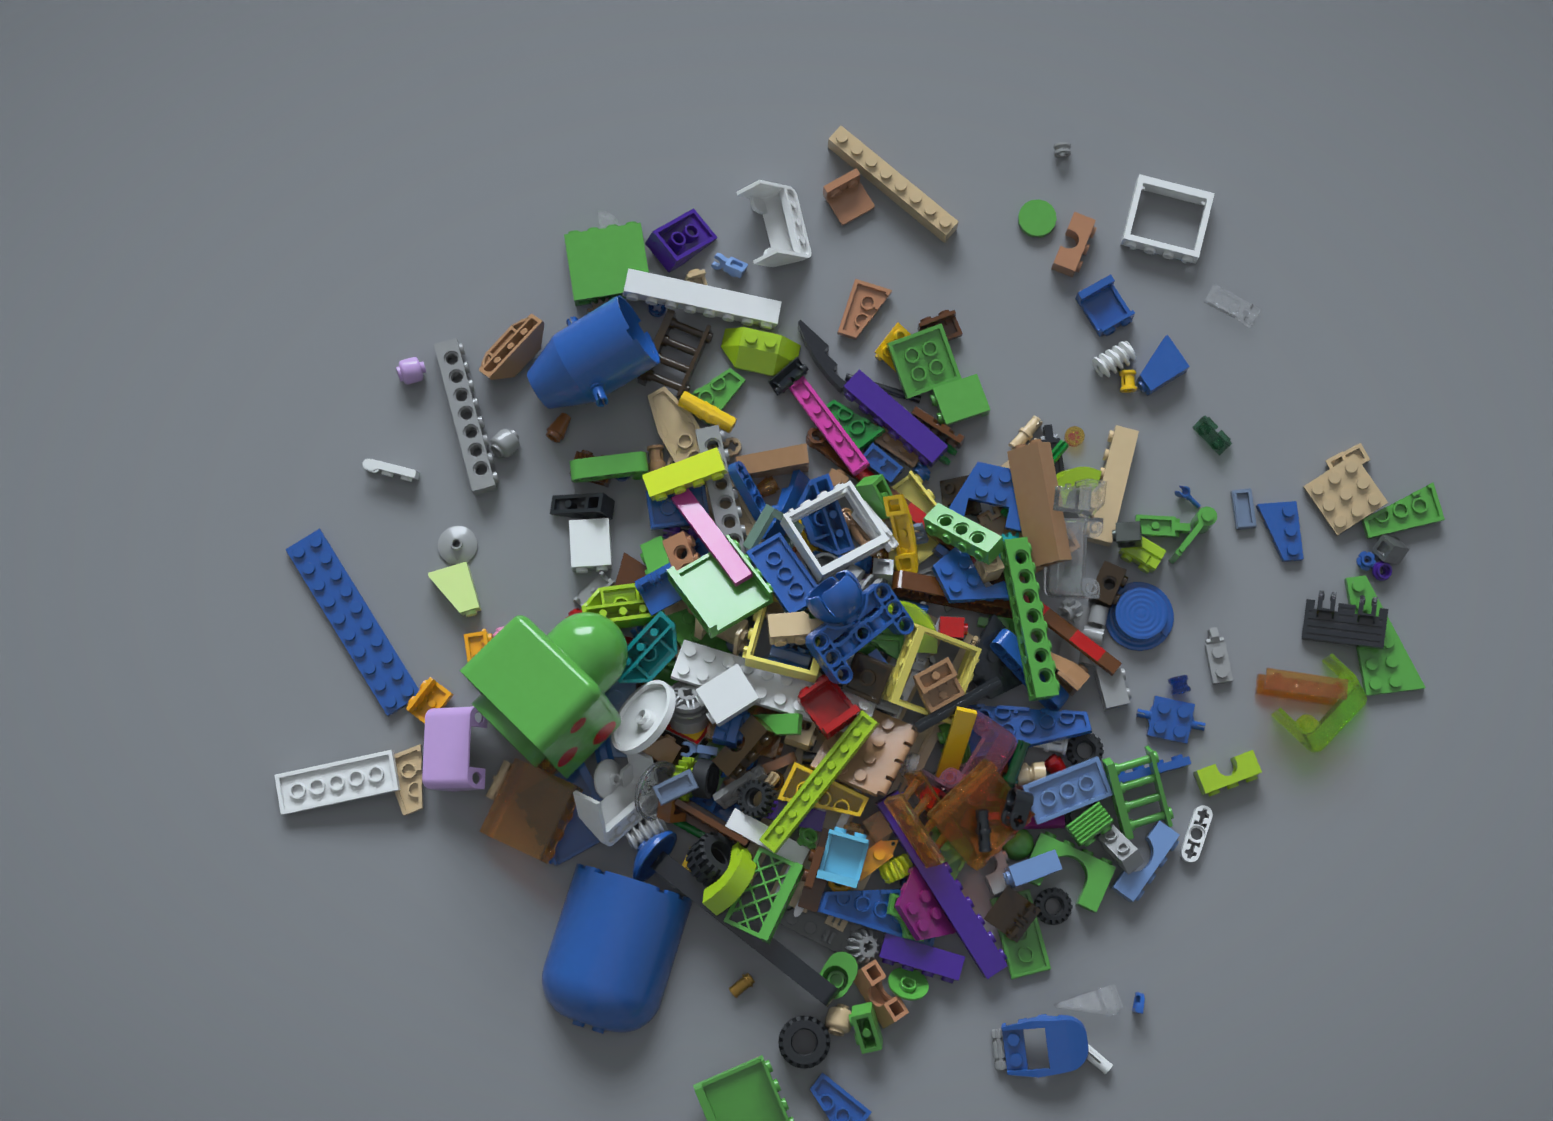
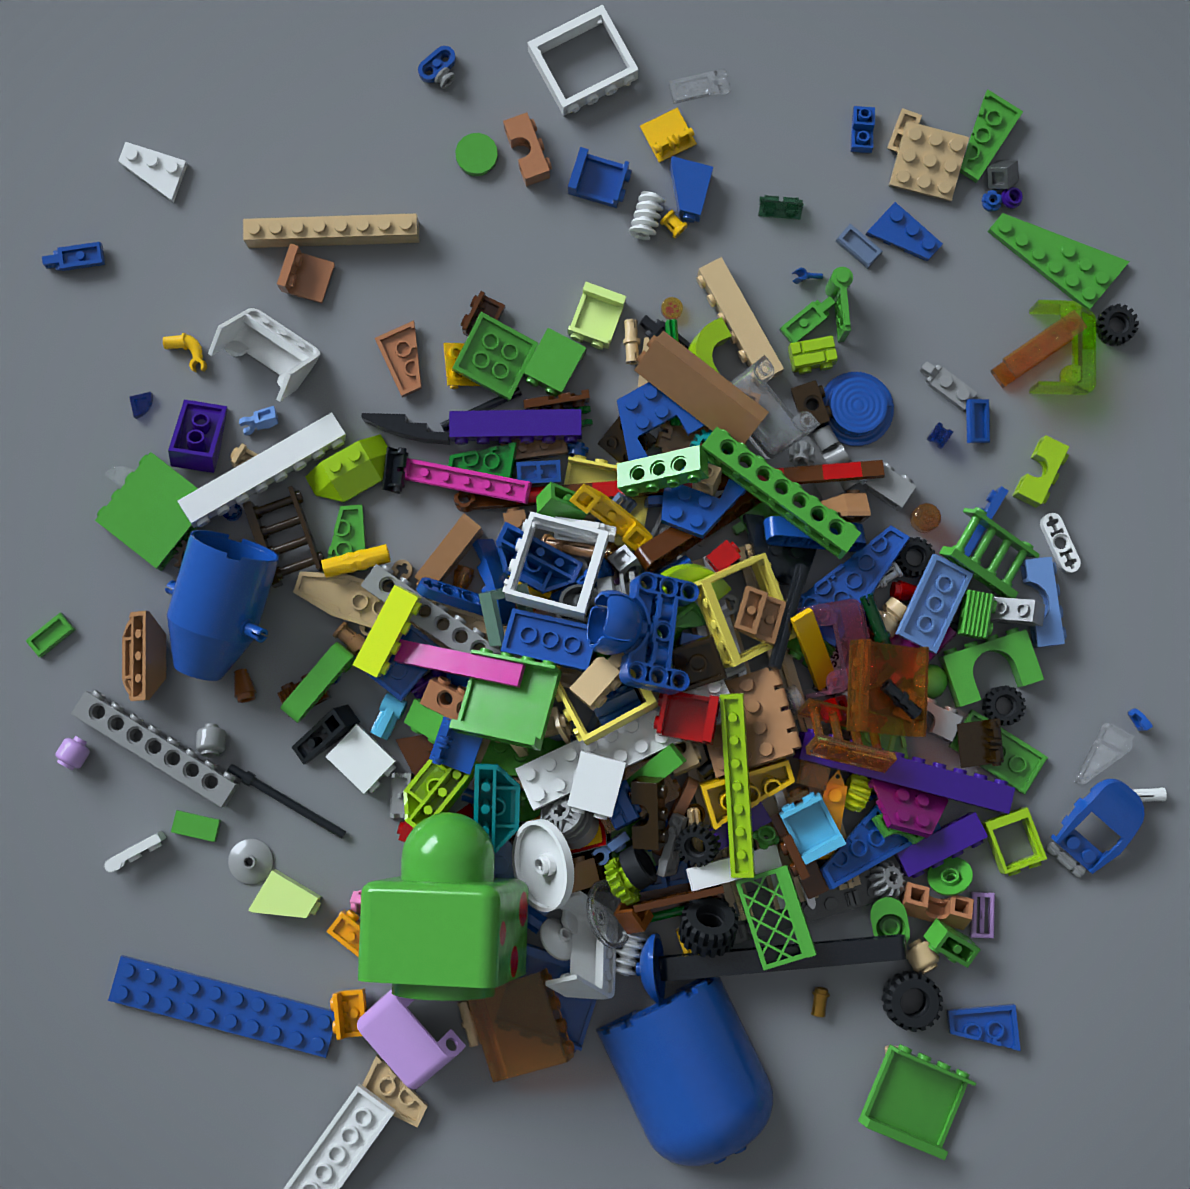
camera: 45 degrees left, 5 degrees up
(444, 489) = (195, 825): none -> bright green tile
(466, 283) = (50, 635): none -> bright green tile
(506, 491) = (249, 778): none -> black bar
(637, 531) = (390, 711): none -> medium azure piece
(663, 186) = (141, 404): none -> clear blue tile
(675, 787) = (624, 899): sand blue tile -> none
(709, 54) = (75, 257): none -> blue hinge
(730, 173) = (187, 342): none -> yellow piece
(732, 883) = (744, 932): lime arch -> none
(814, 42) = (155, 168): none -> white wing
(894, 1044) = (973, 923): none -> lavender tile
(982, 982) = (1004, 819): none -> lime window
(1017, 807) = (911, 655): black piece -> none
(1018, 396) = (597, 316): none -> yellowish green panel
(1032, 869) = (967, 693): medium blue window -> none
(1065, 135) = (435, 64): none -> blue plate
(1083, 498) = (730, 354): clear wedge -> none
(1111, 734) = (921, 523): none -> clear orange head
(1128, 534) = (792, 350): pearl dark grey brick -> none
(1170, 719) = (957, 469): blue plate -> none
(1180, 319) = (668, 135): none -> yellow hinge
(1215, 699) = (978, 420): none -> blue tile
(1319, 433) = (862, 129): none -> blue slope
(1345, 626) = (1023, 267): black hinge -> none
(1386, 716) = (1129, 324): none -> black tyre

